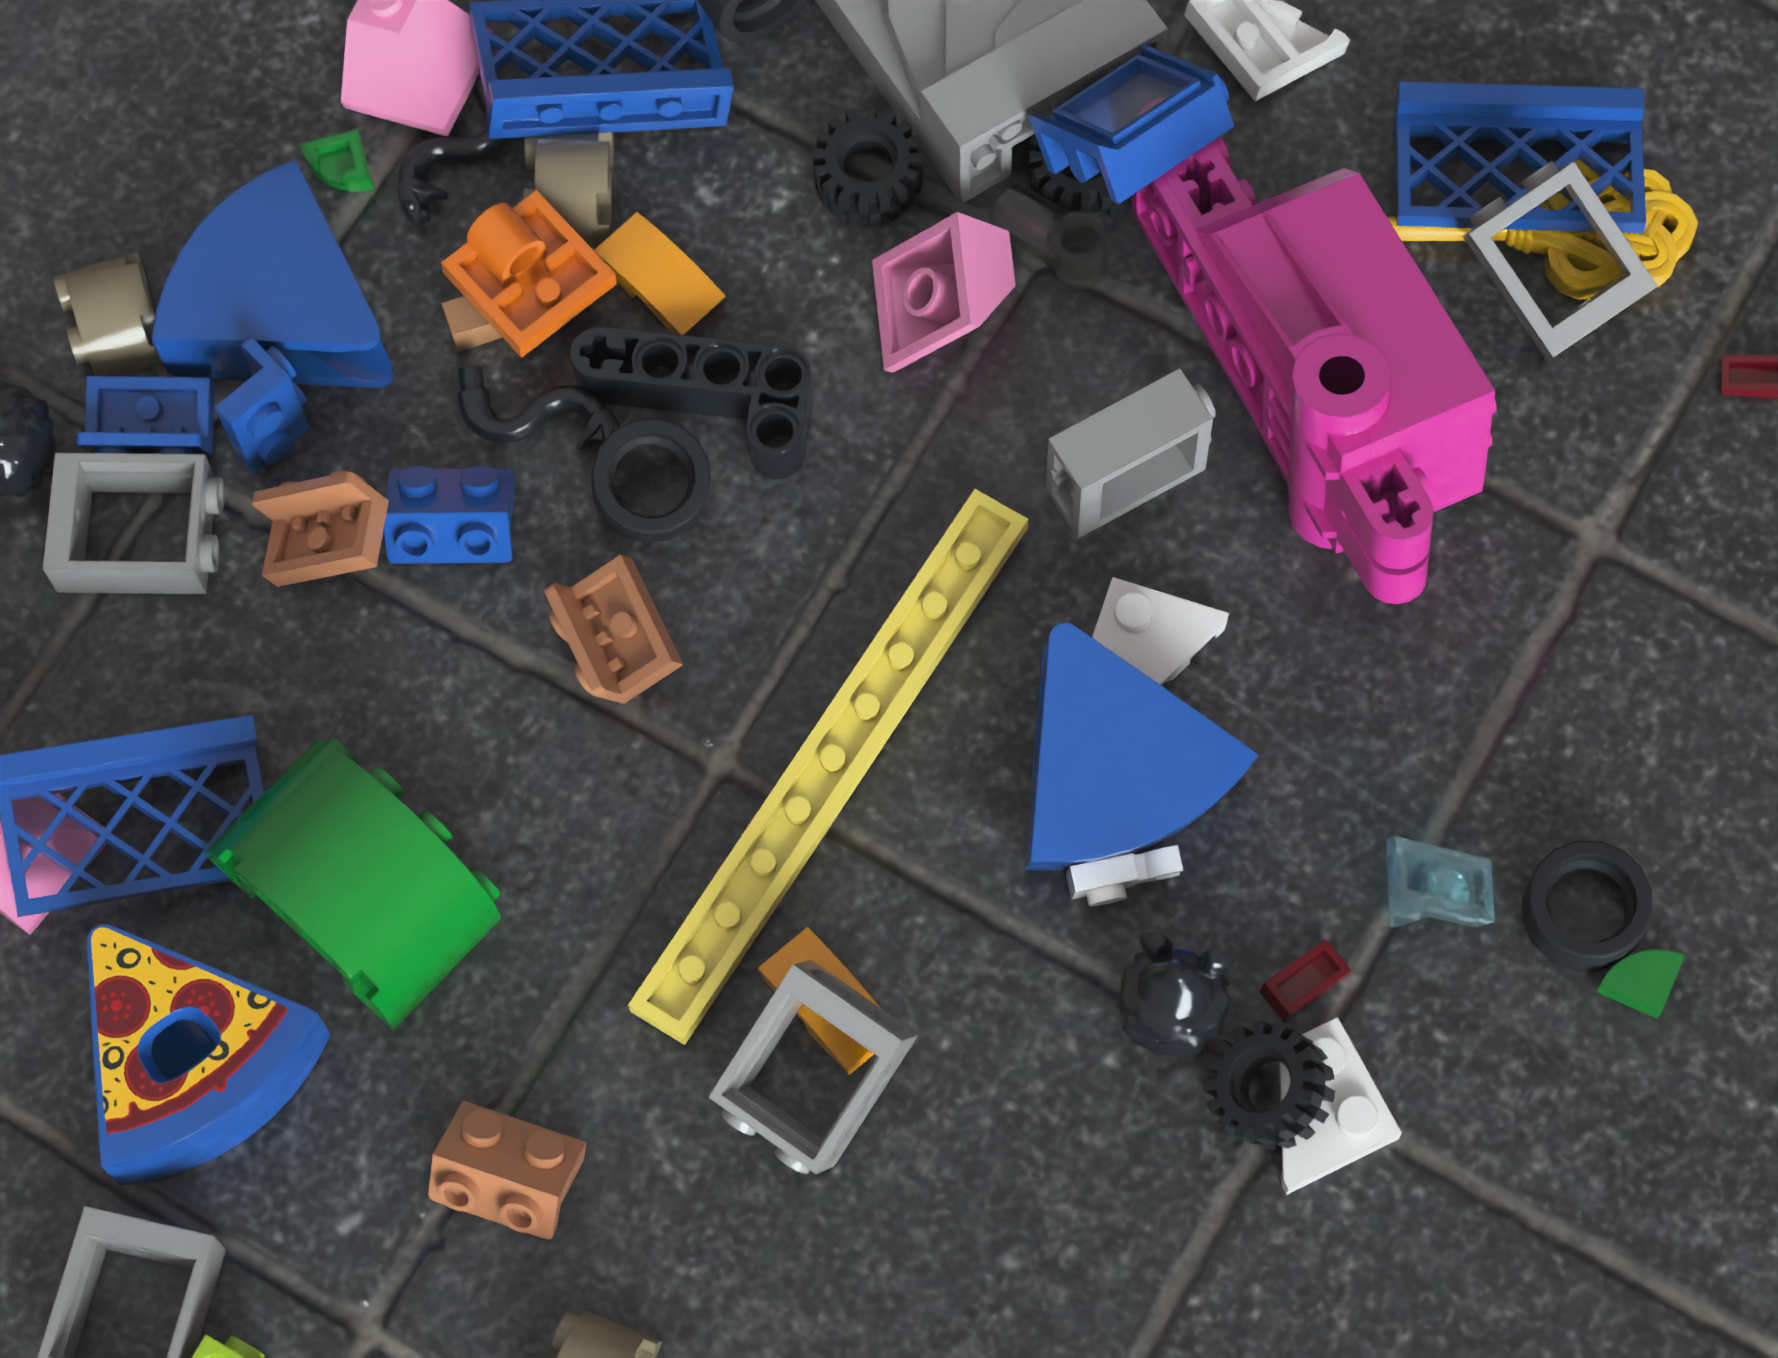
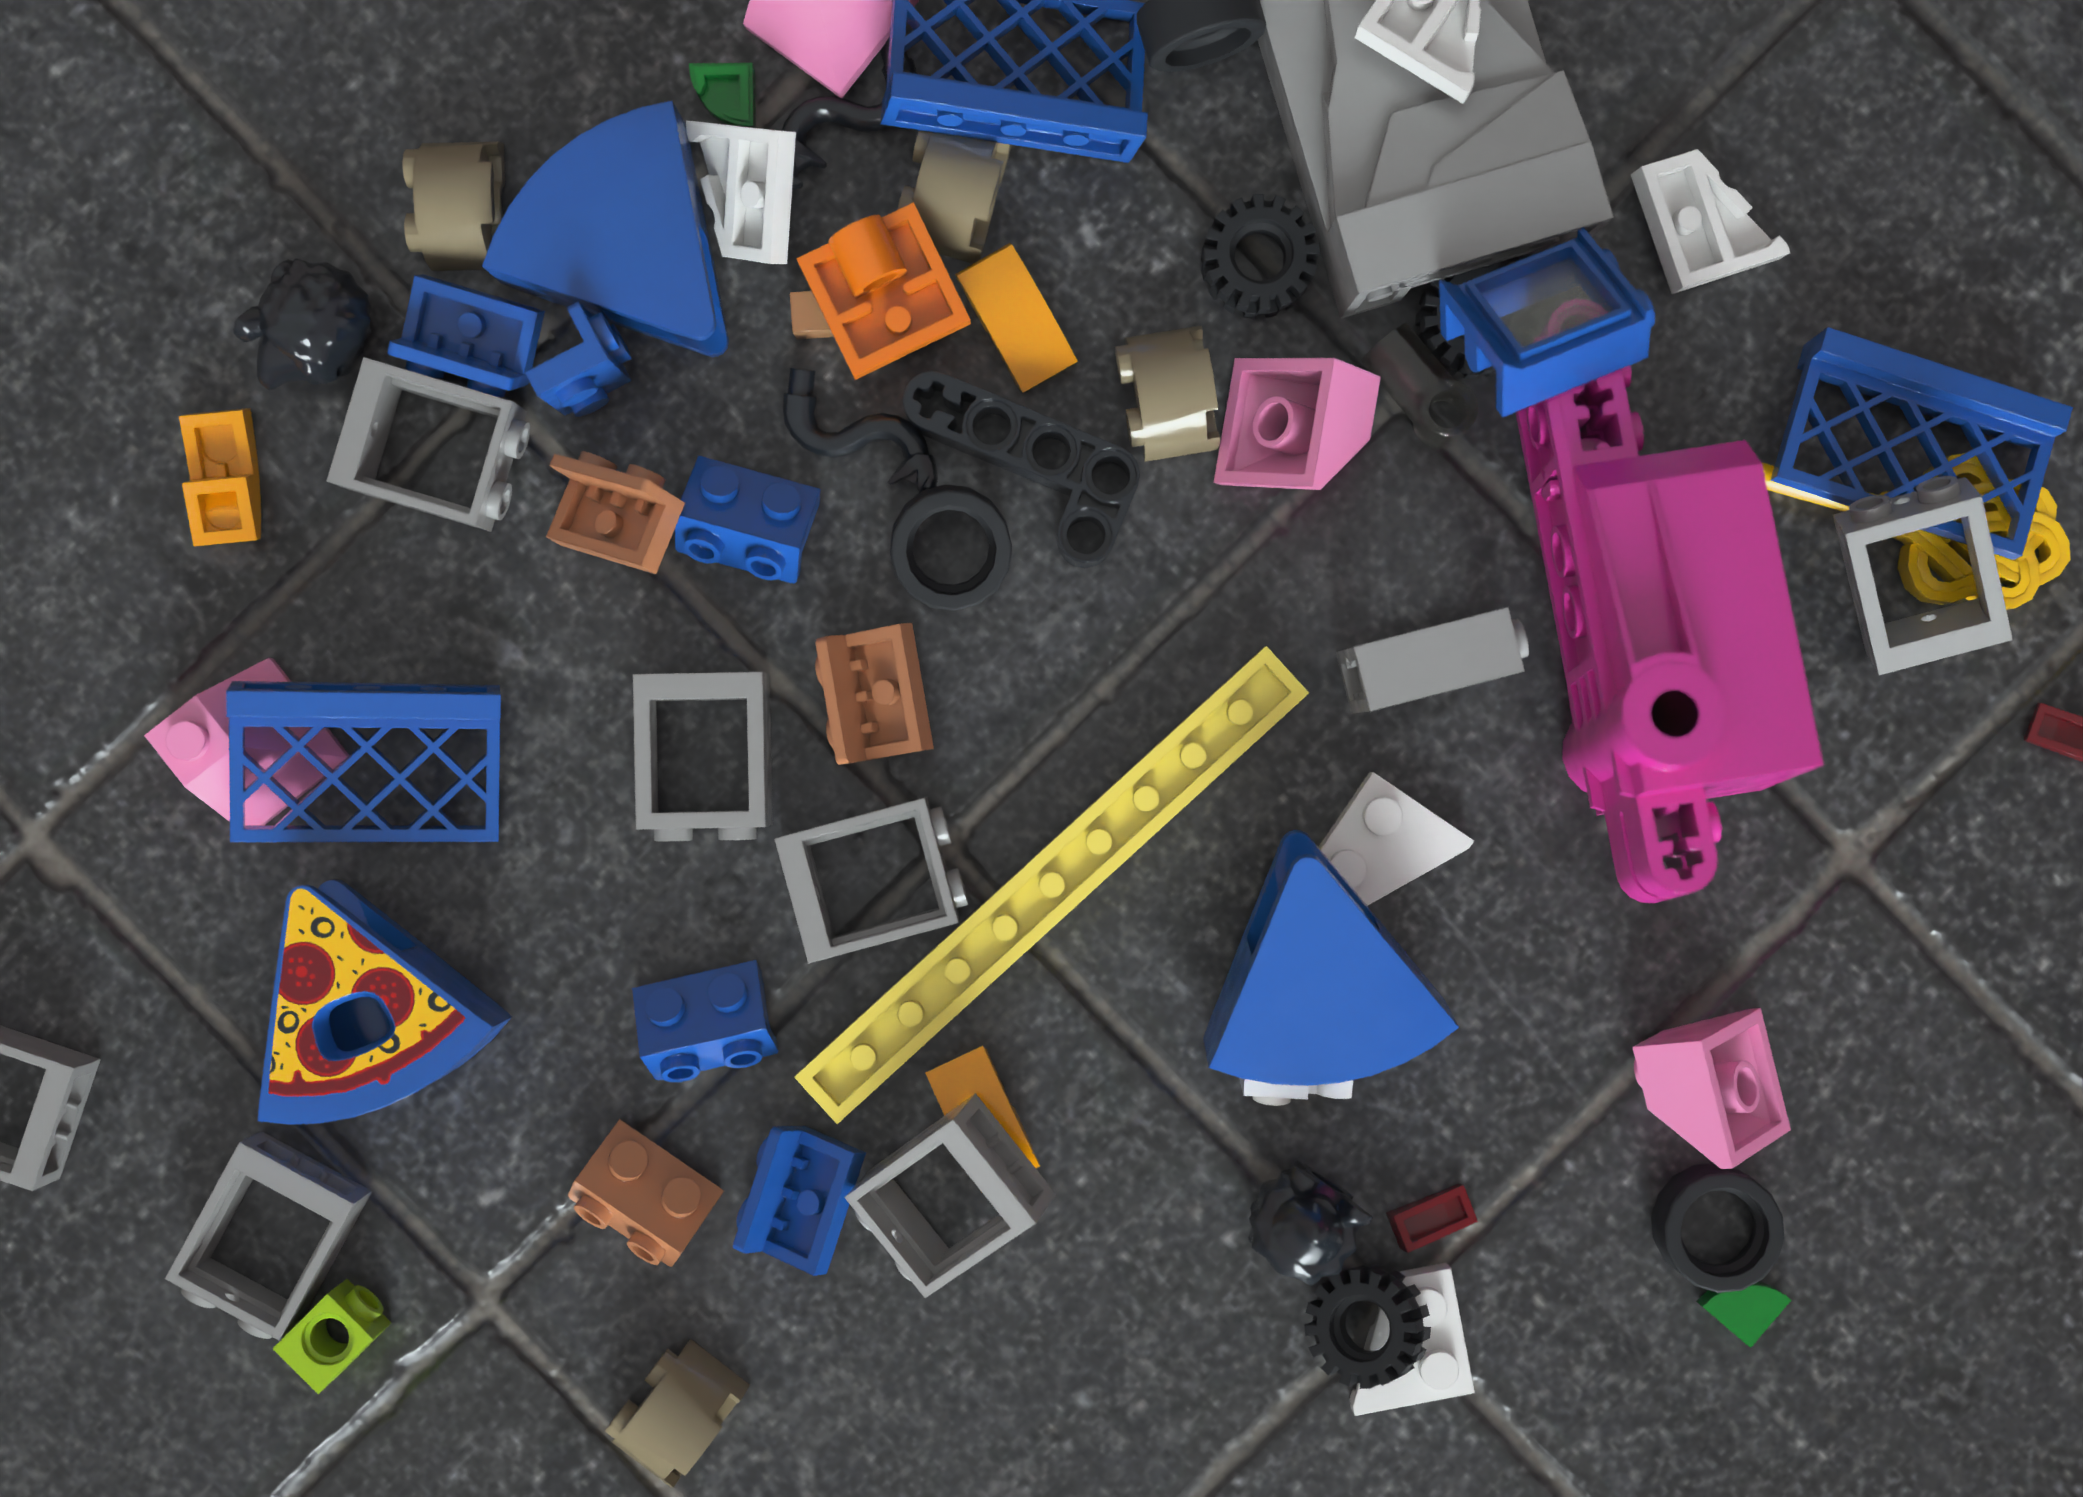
camera: 10 degrees right, 20 degrees up
(359, 878) = (553, 888): green cylinder -> none
(380, 226) = (748, 188): none -> white wing
(447, 670) = (693, 687): none -> light grey window
(526, 984) = (703, 1022): none -> blue bracket
(626, 753) = (808, 896): none -> light grey window
(663, 1123) = (798, 1198): none -> blue bracket
(822, 301) = (1171, 391): none -> dark tan cylinder
(1438, 884) = (1583, 1175): clear light blue slope -> none
(1533, 764) = (1715, 1085): none -> bright pink slope

